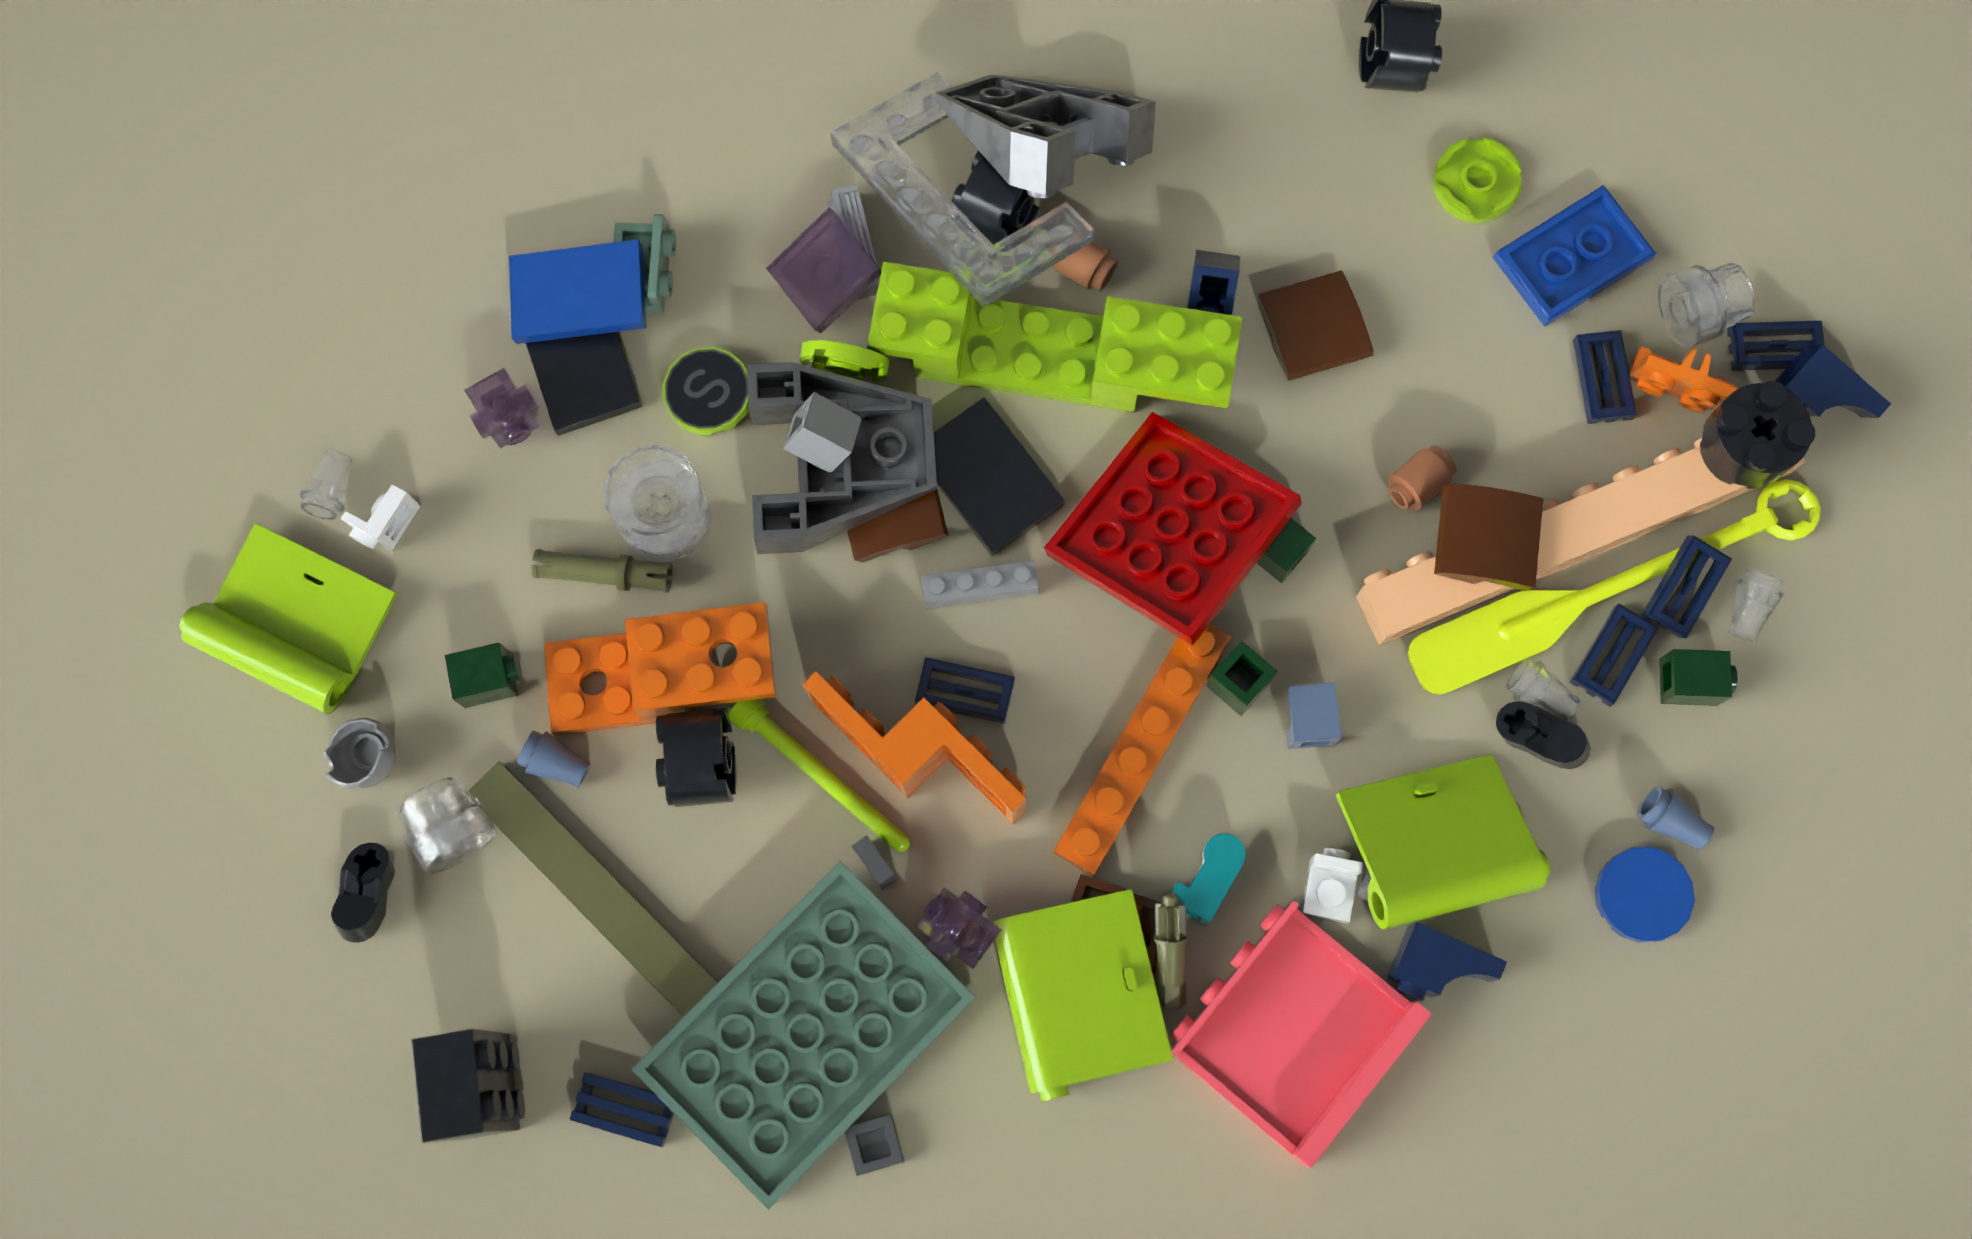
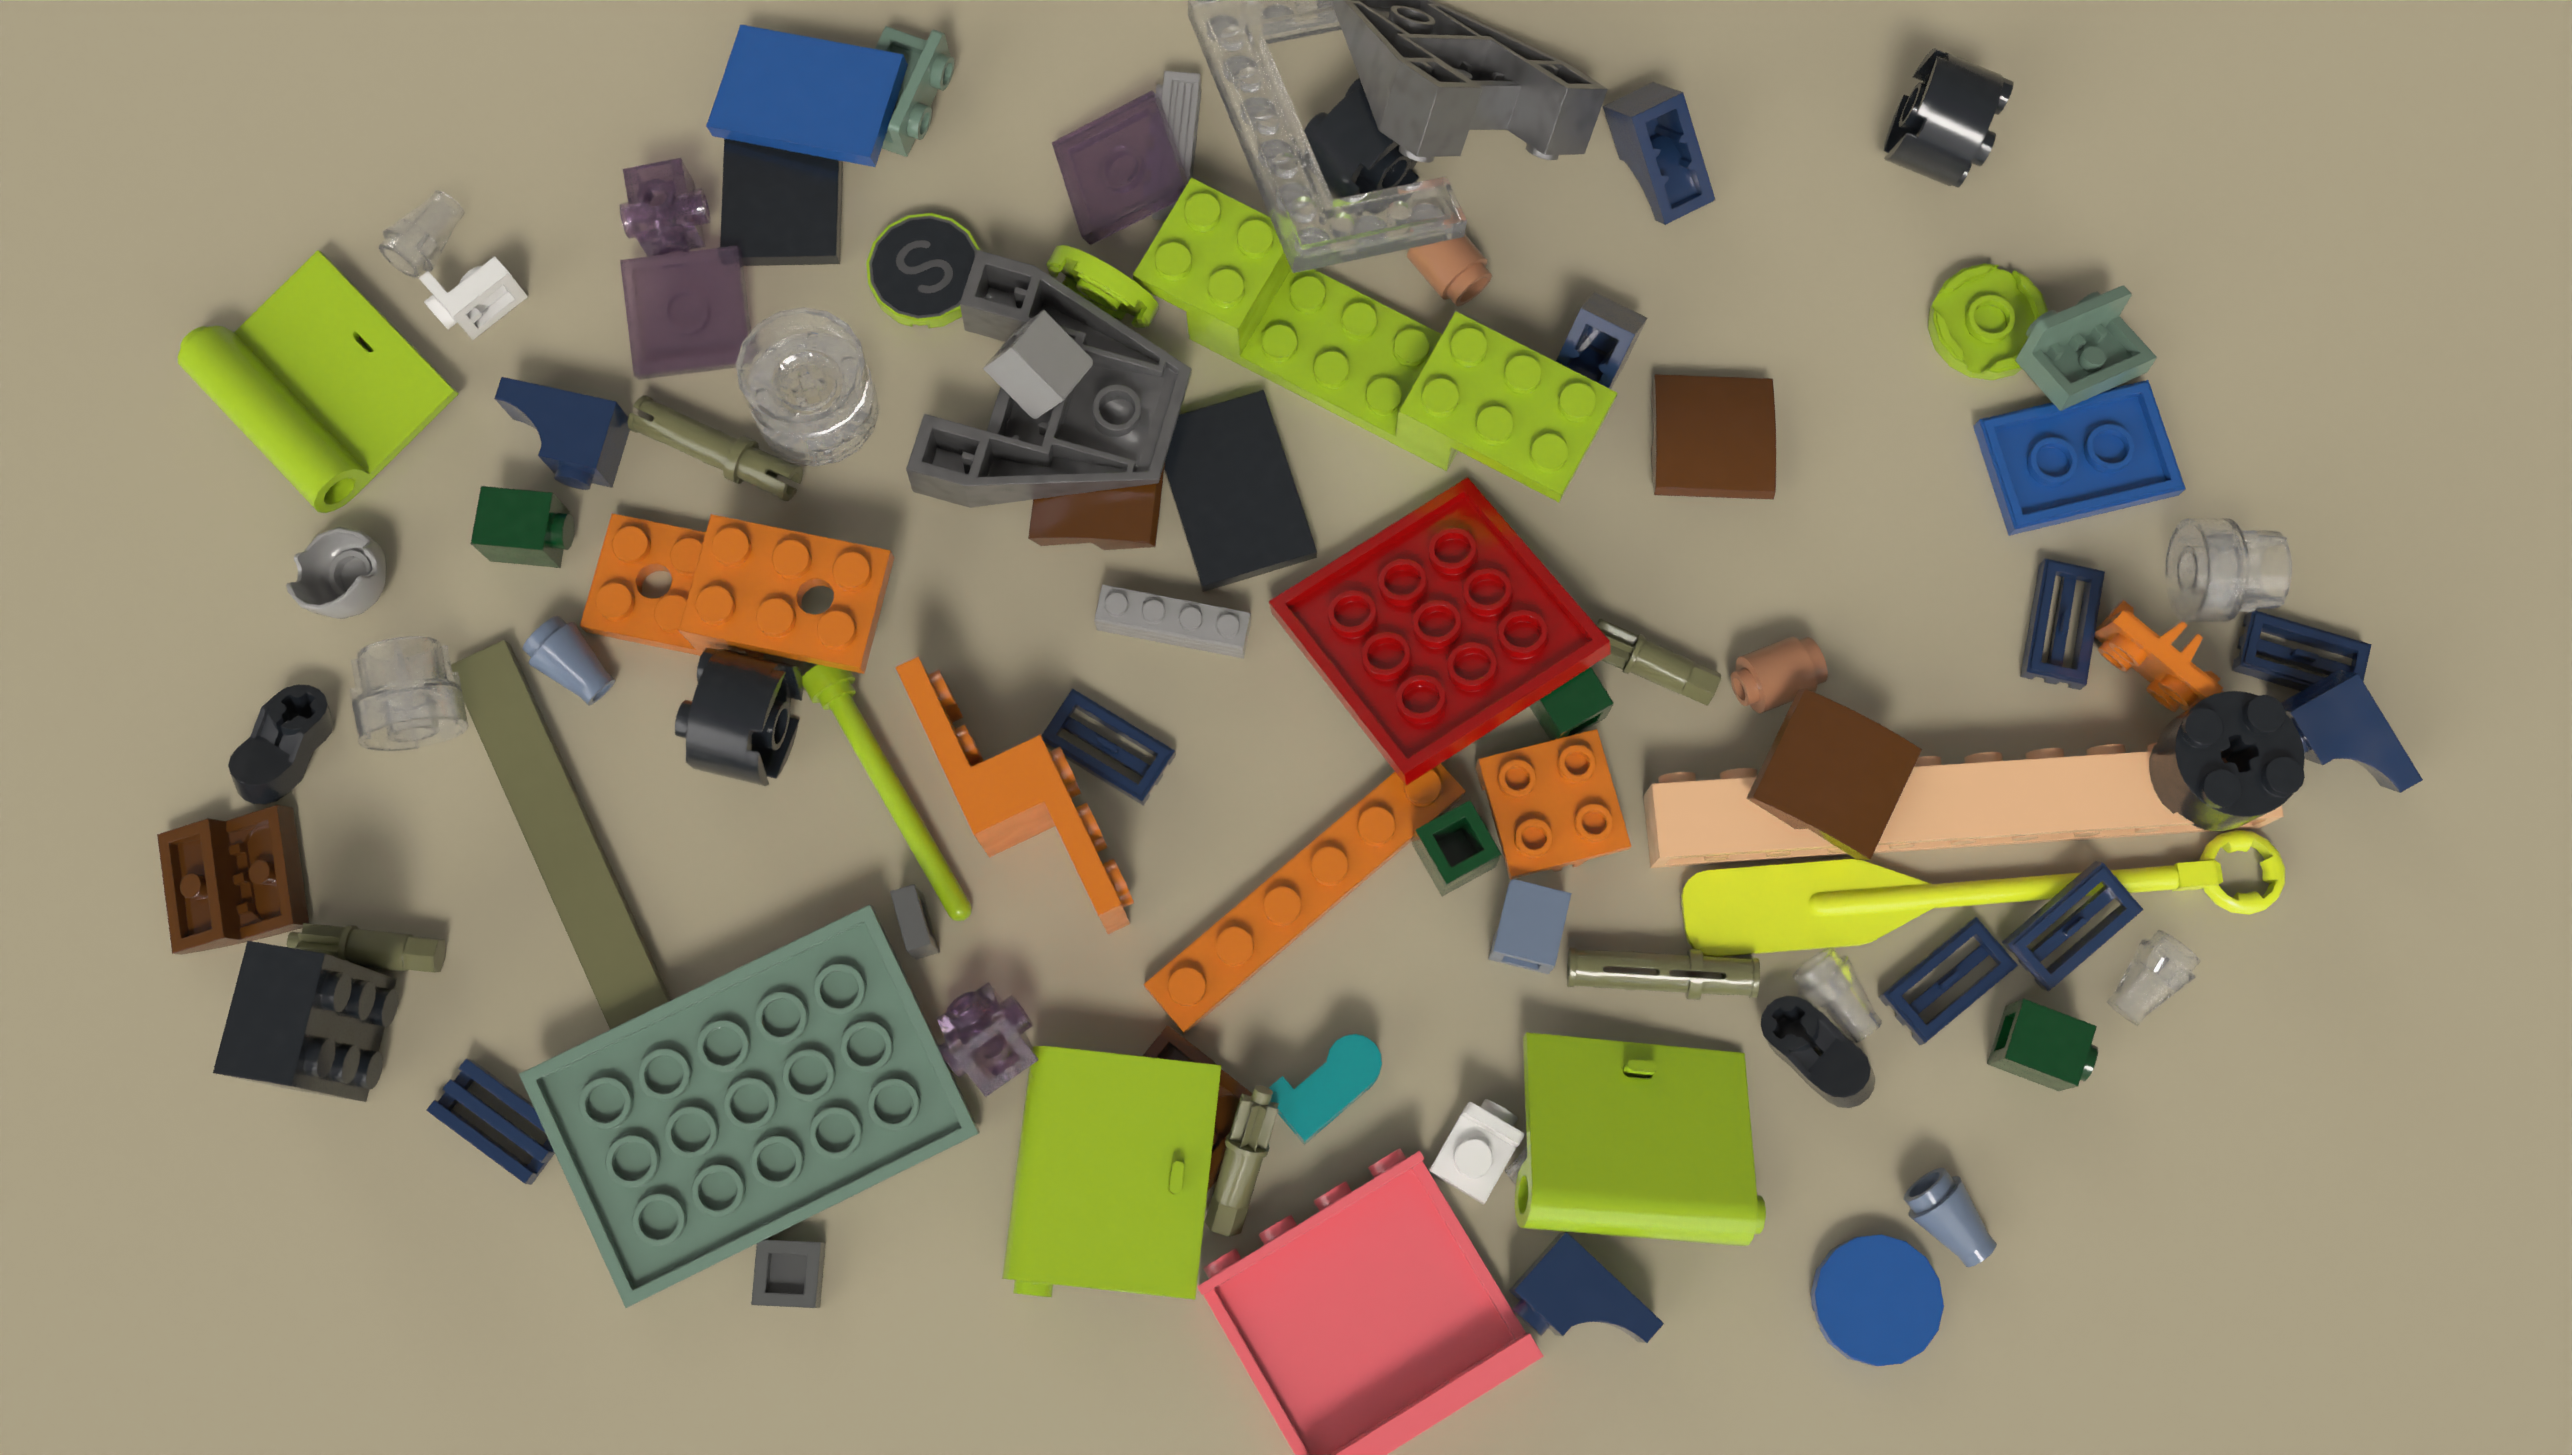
camera: 15 degrees right, 0 degrees up
(363, 1003) = (232, 880): none -> reddish brown slope
(485, 1016) = (371, 947): none -> olive piece
(497, 590) = (577, 432): none -> dark blue arch
(545, 478) = (685, 311): none -> clear purple tile
(1206, 131) = (1661, 149): none -> dark blue arch
(1297, 623) = (1553, 804): none -> orange piece
(1337, 500) = (1658, 664): none -> olive piece
(1467, 701) = (1737, 975): none -> olive pin
(1553, 178) = (2084, 349): none -> sand green bracket

